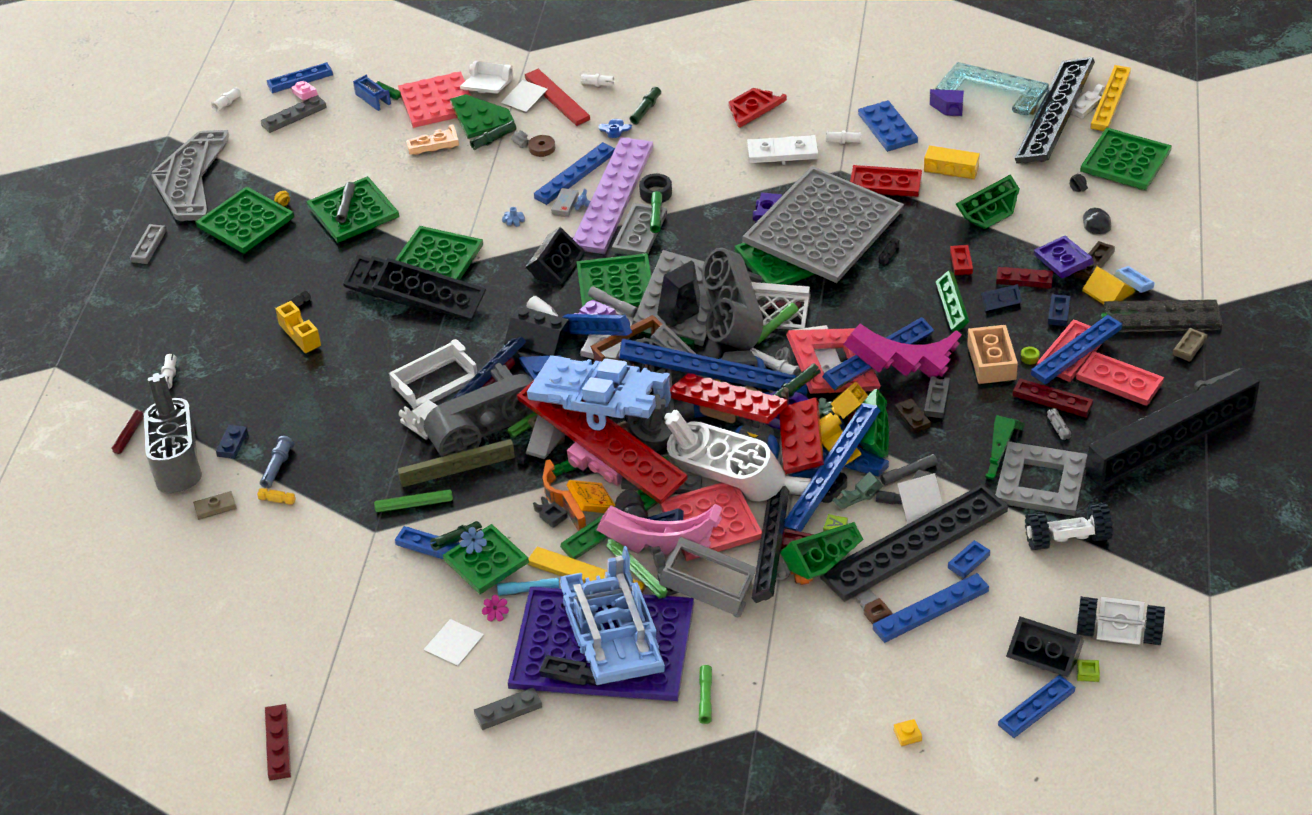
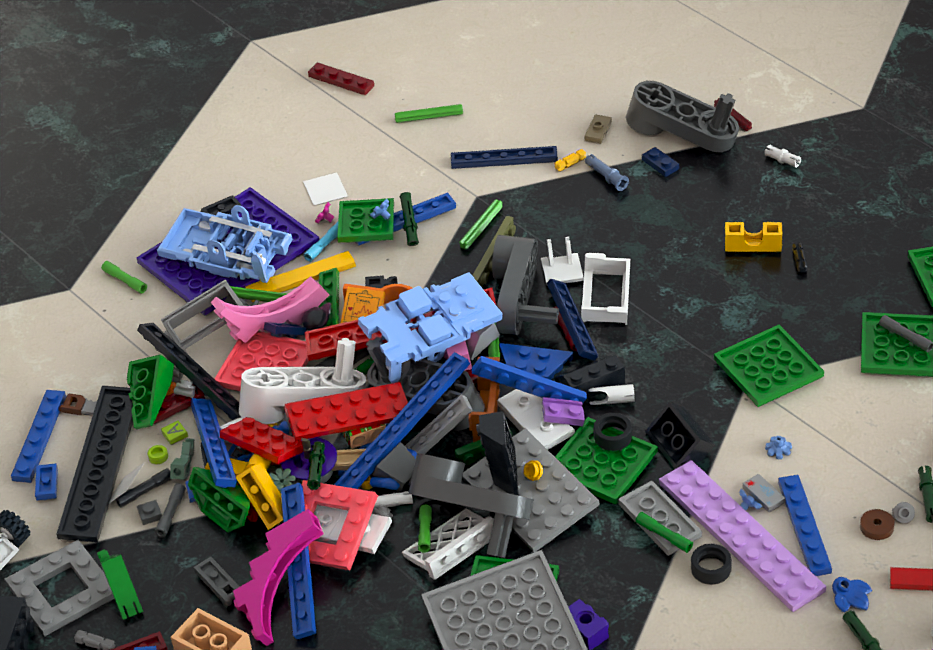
camera: 130 degrees right, 0 degrees up
(283, 634) = (429, 113): none -> bright green axle
(307, 544) = (504, 157): none -> dark blue tile
(413, 286) = (734, 325): black slope -> none
(507, 708) = (237, 181): dark grey plate -> none
(588, 271) = (612, 420): none -> black tyre
(603, 297) = (552, 430): light grey piece -> none
(791, 533) = (185, 388): none -> light grey plate
(866, 519) = (157, 454): none -> lime tile
(912, 416) = (223, 554): dark brown plate -> none

